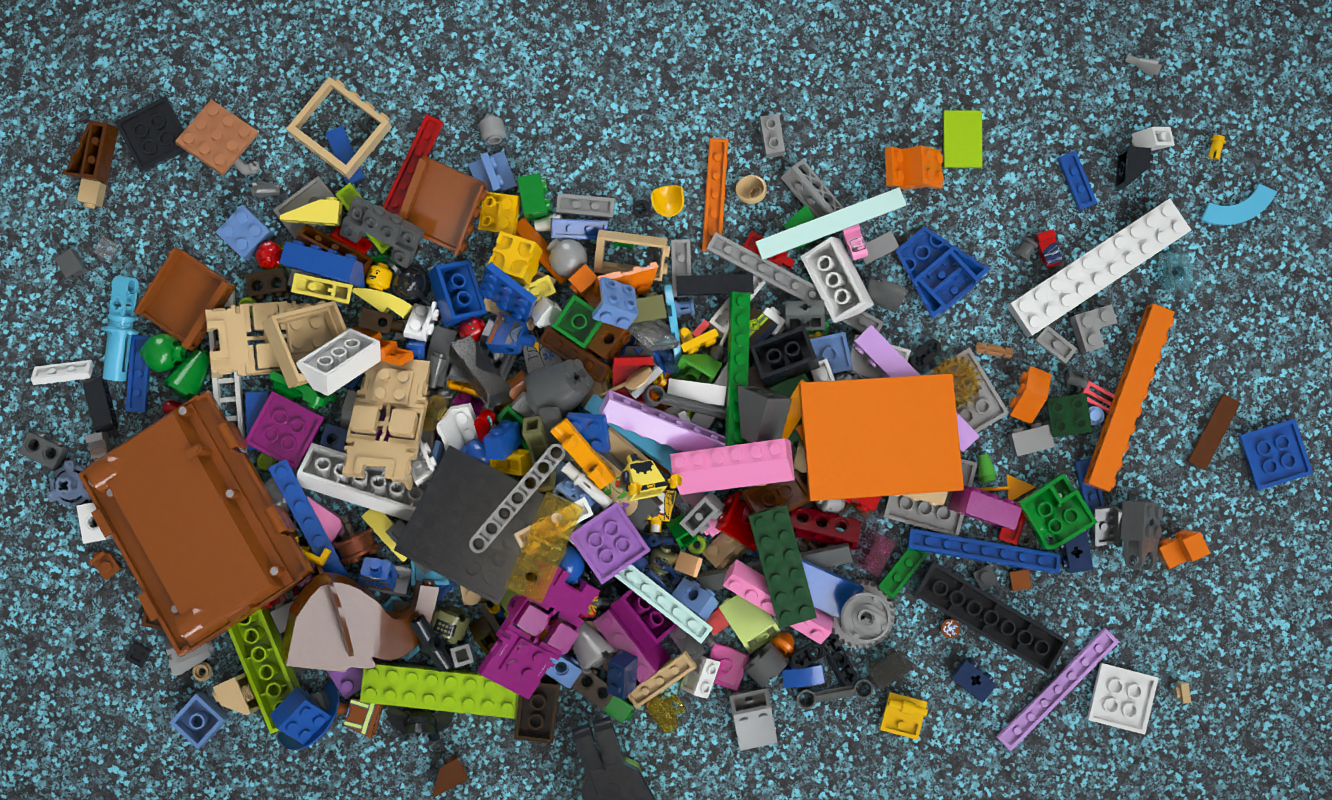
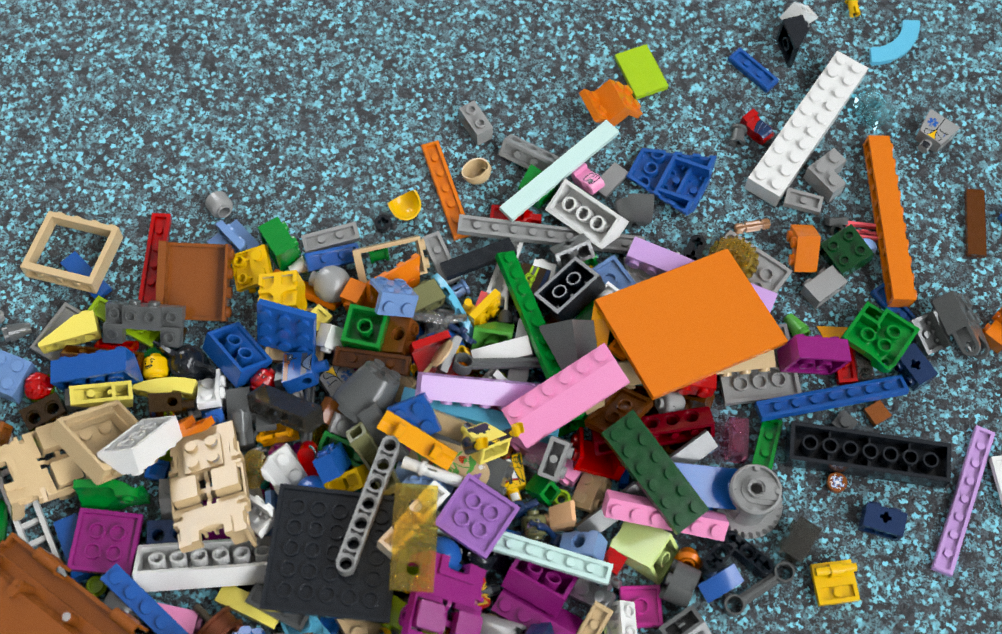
camera: 25 degrees left, 20 degrees down
(1224, 323) = (935, 132): none -> light grey torso

